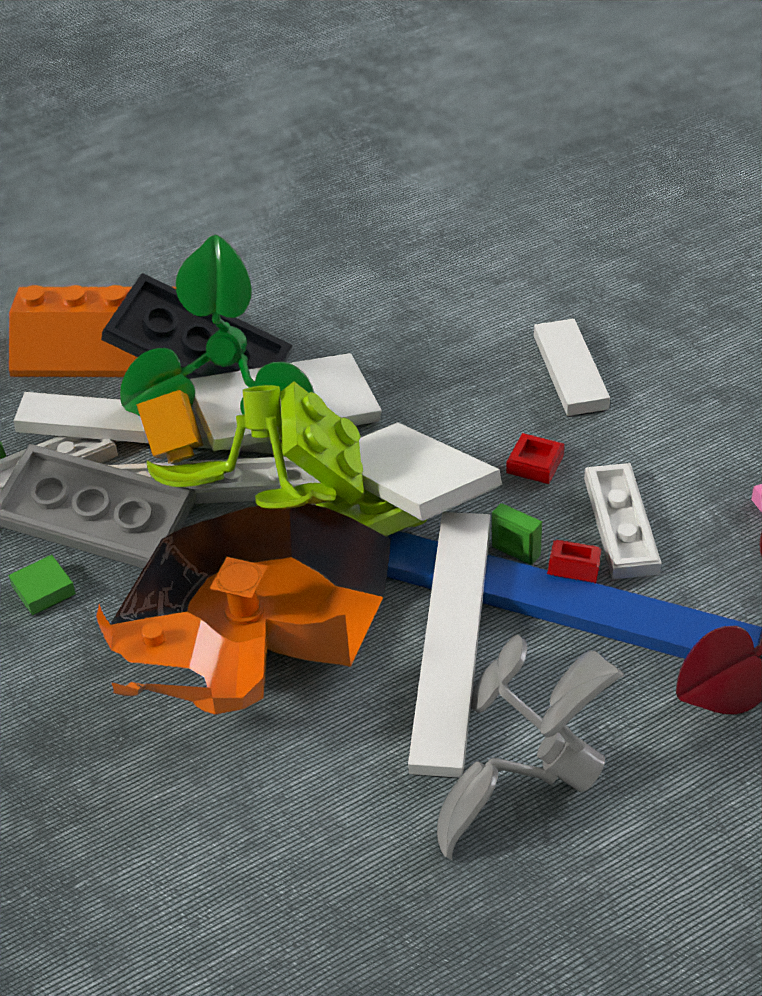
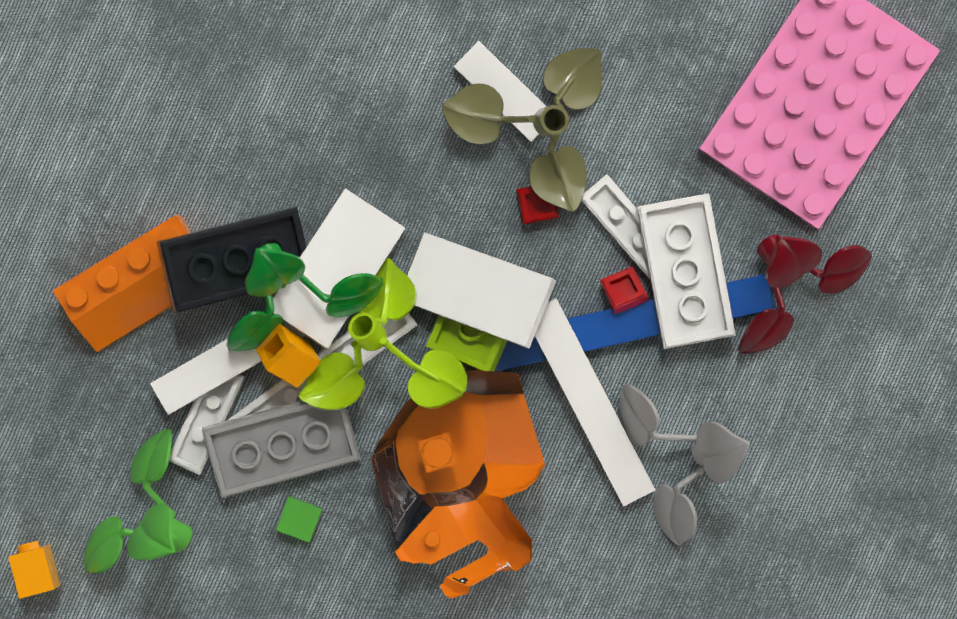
camera: 40 degrees left, 45 degrees up
(321, 442) = (421, 327): lime plate -> none
(516, 533) = (567, 292): bright green tile -> none
(571, 435) = (562, 173): none -> olive plant
(661, 576) = (686, 271): none -> white tile

